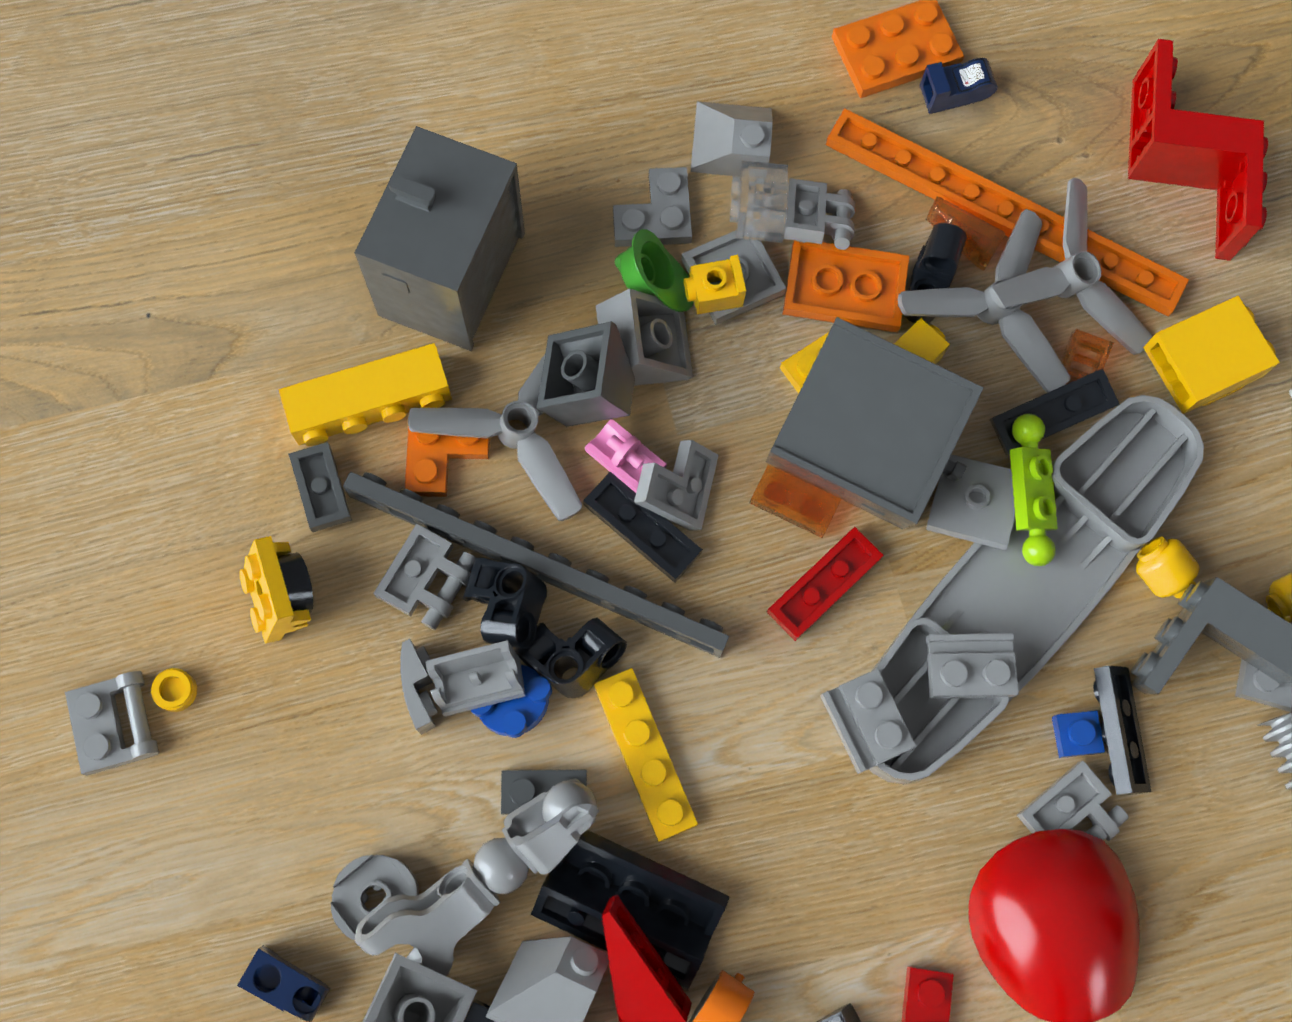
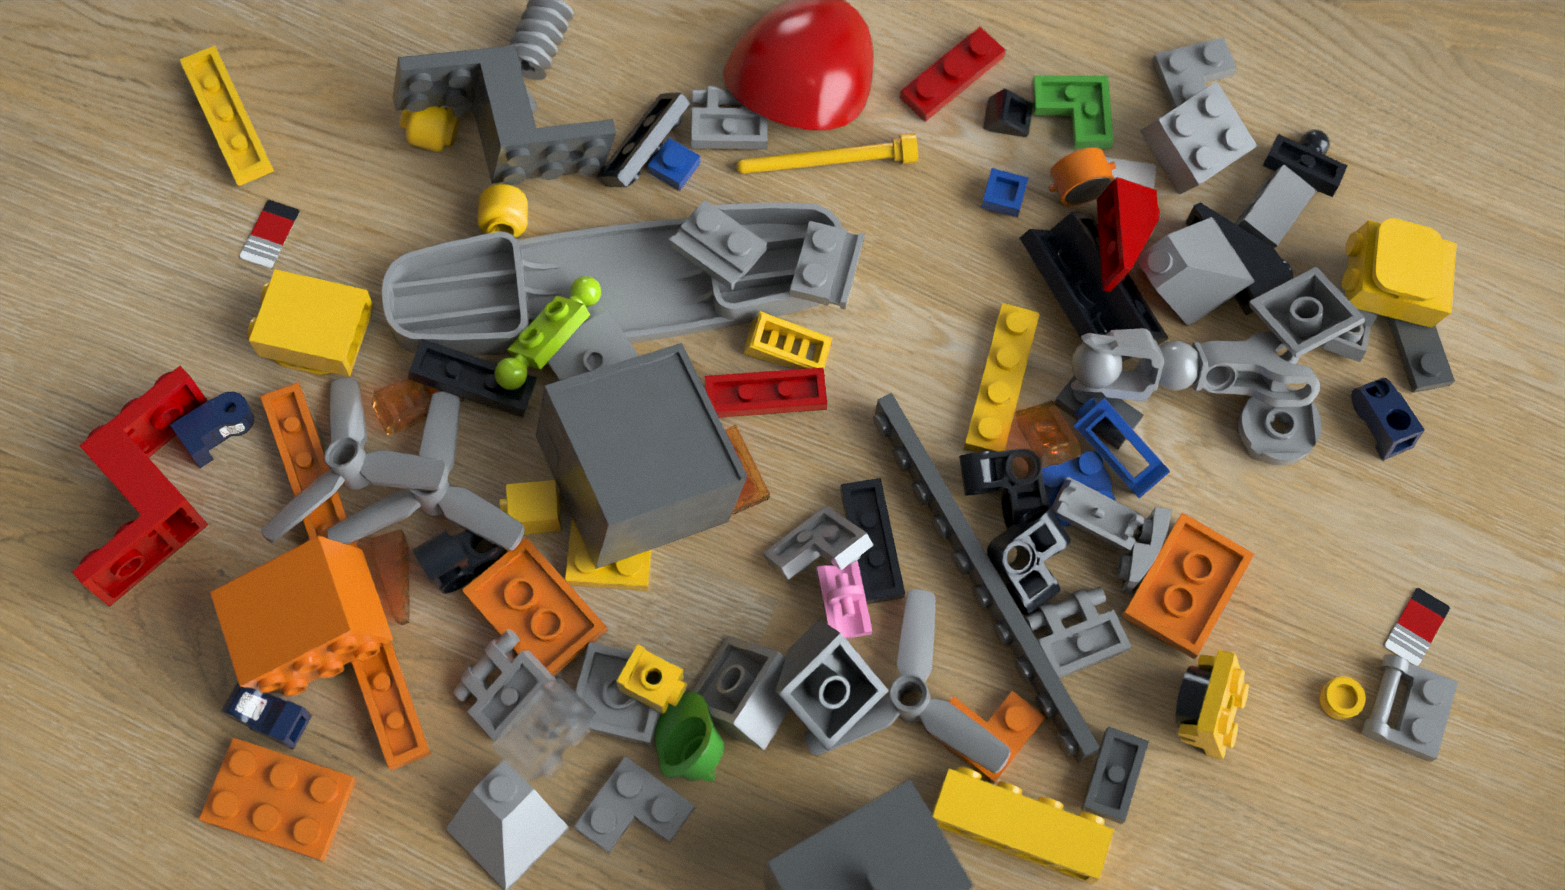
camera: 140 degrees left, 5 degrees down
(144, 806) = (1417, 626): none -> sticker
(360, 686) = (1188, 585): none -> orange plate
(497, 770) = (1093, 412): none -> blue window
(568, 721) = (1048, 434): none -> clear orange plate
(779, 941) = (1004, 192): none -> blue plate
(849, 656) = (791, 331): none -> yellow slope
(902, 911) = (901, 149): none -> yellow piece
(992, 137) = (301, 617): none -> orange container
(1200, 235) = (212, 424): none -> dark blue leg

